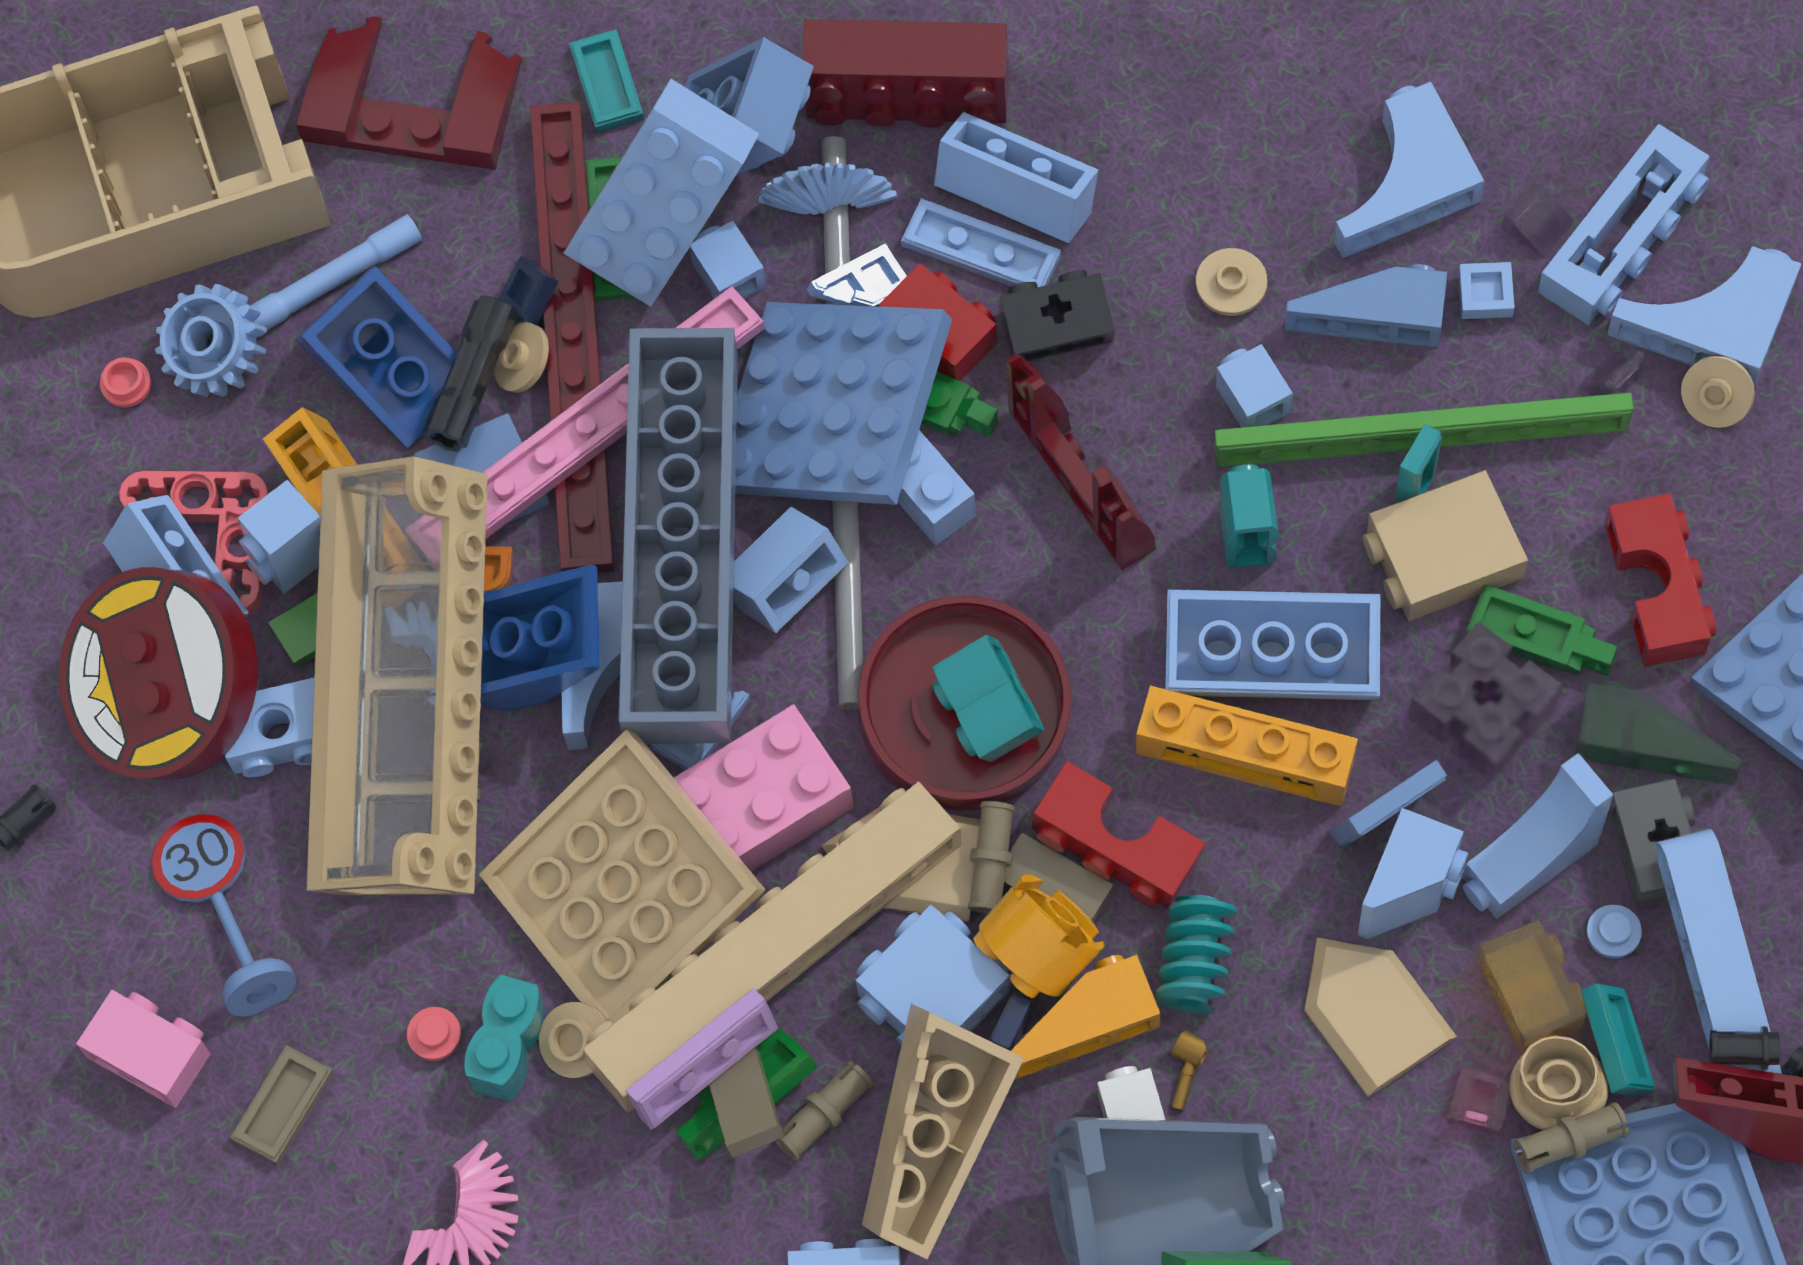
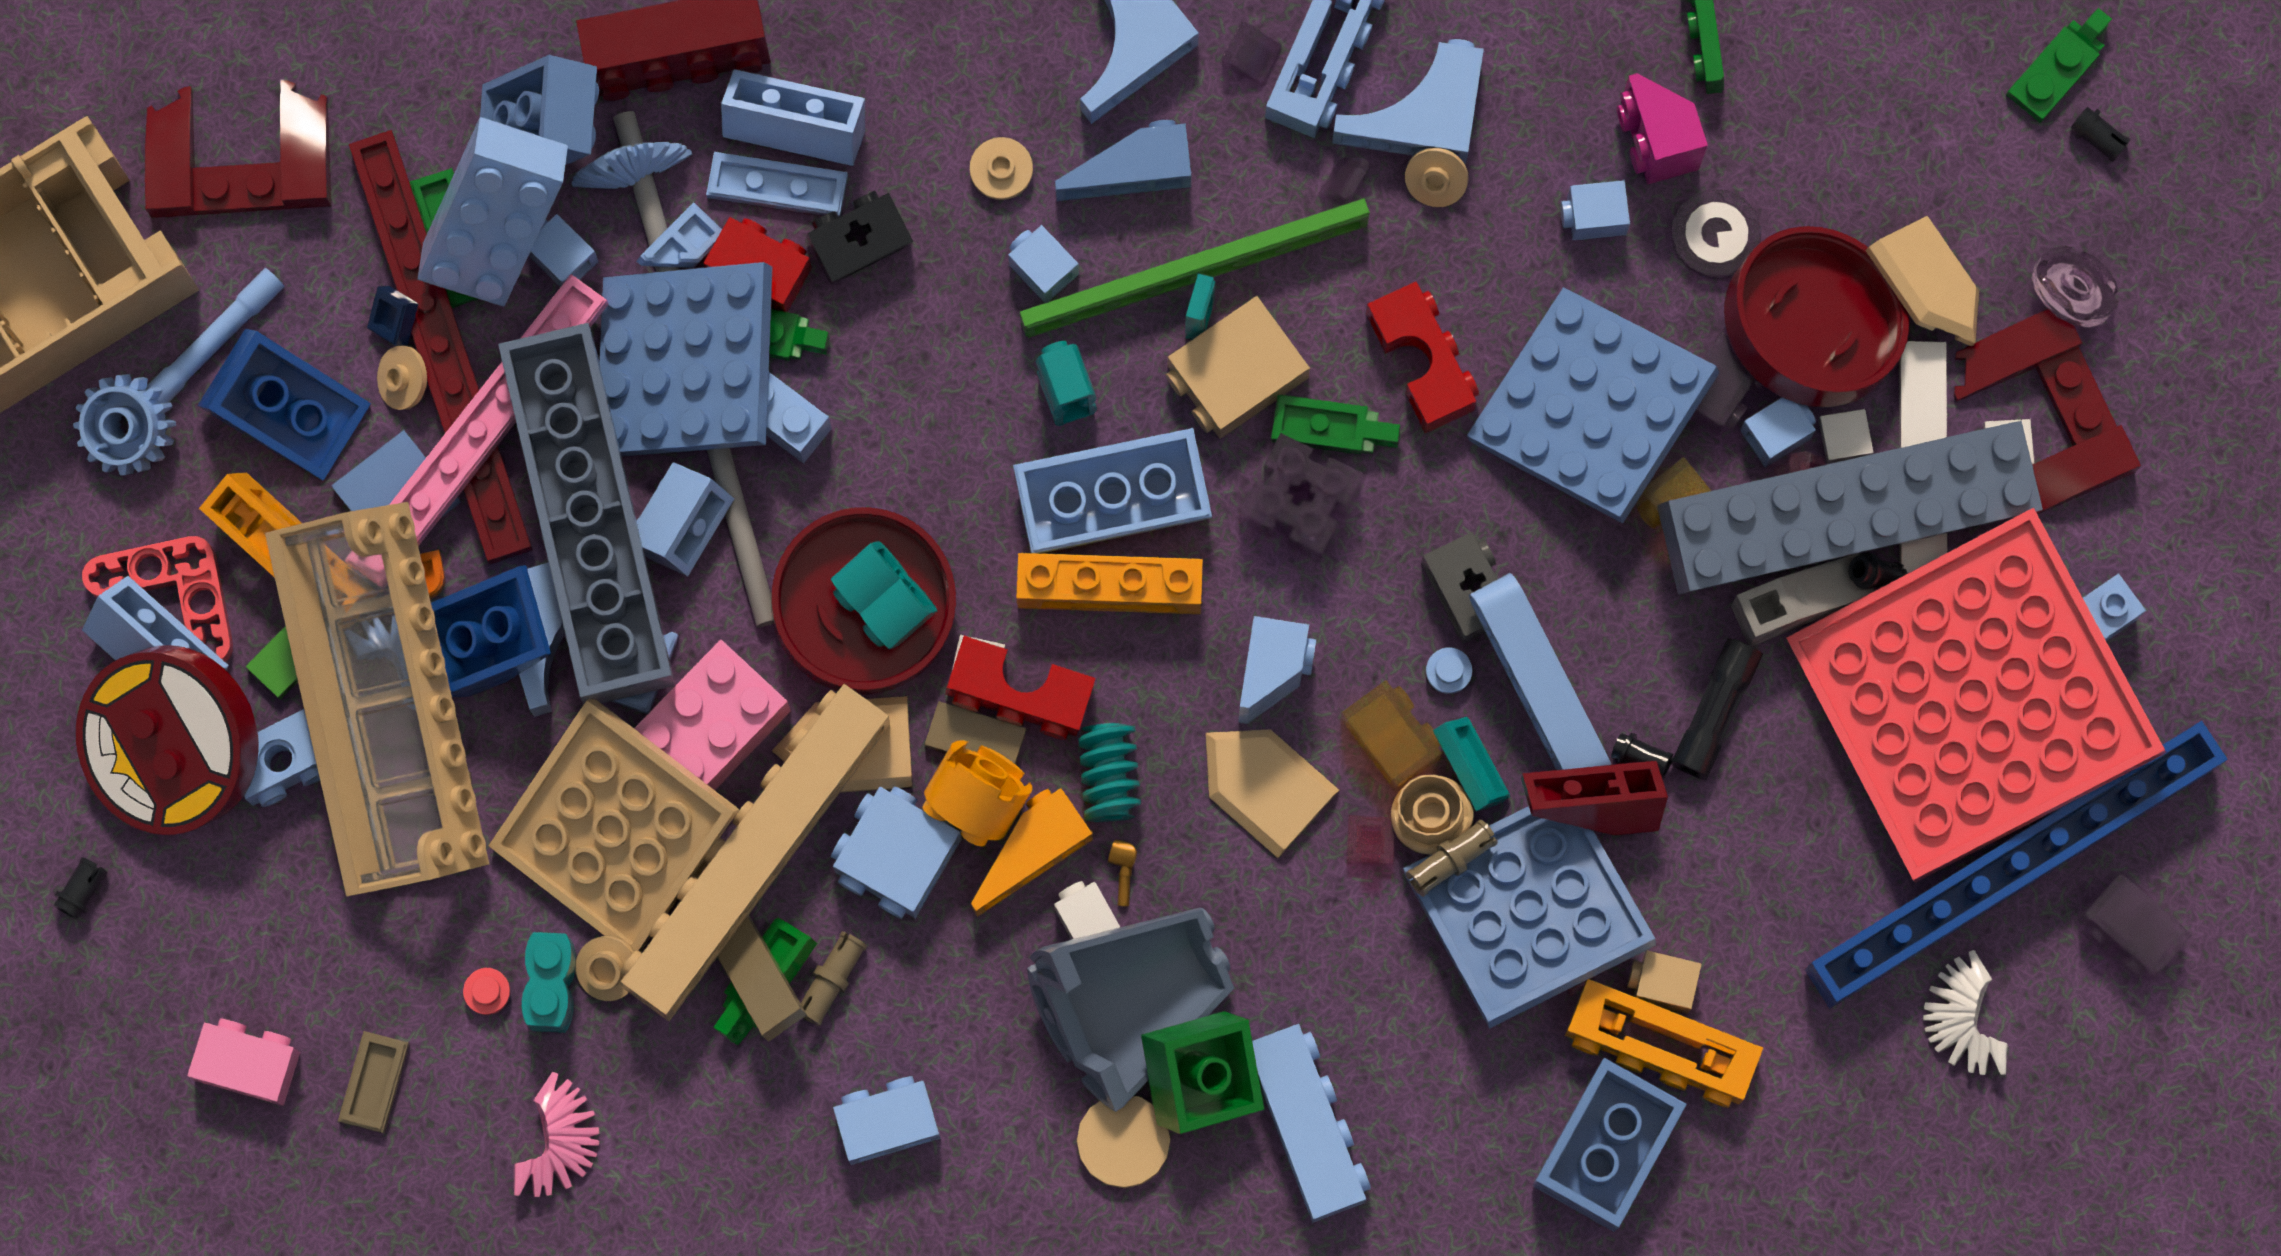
camera: 20 degrees left, 10 degrees up
(125, 382) = (58, 477): coral plate -> none
(198, 863) = (244, 890): medium blue piece -> none
(281, 537) = (242, 595): light blue brick -> none
(458, 404) = (360, 439): black axle -> none
(606, 81) = (408, 102): teal tile -> none
(702, 1059) = (722, 964): lavender tile -> none
(934, 1127) = (930, 975): tan wedge -> none
(991, 856) = (918, 730): dark tan pin -> none
(1012, 1022) = (970, 872): dark blue tile -> none
(1097, 496) = (937, 396): dark red wedge -> none
(1388, 804) = (1240, 609): medium blue tile -> none
(1486, 290) = (1221, 128): light blue plate -> none
(1542, 842) = (1371, 614): light blue arch -> none
(1640, 734) = (1434, 496): clear green slope -> none
(1745, 1048) = (1577, 751): black pin -> none

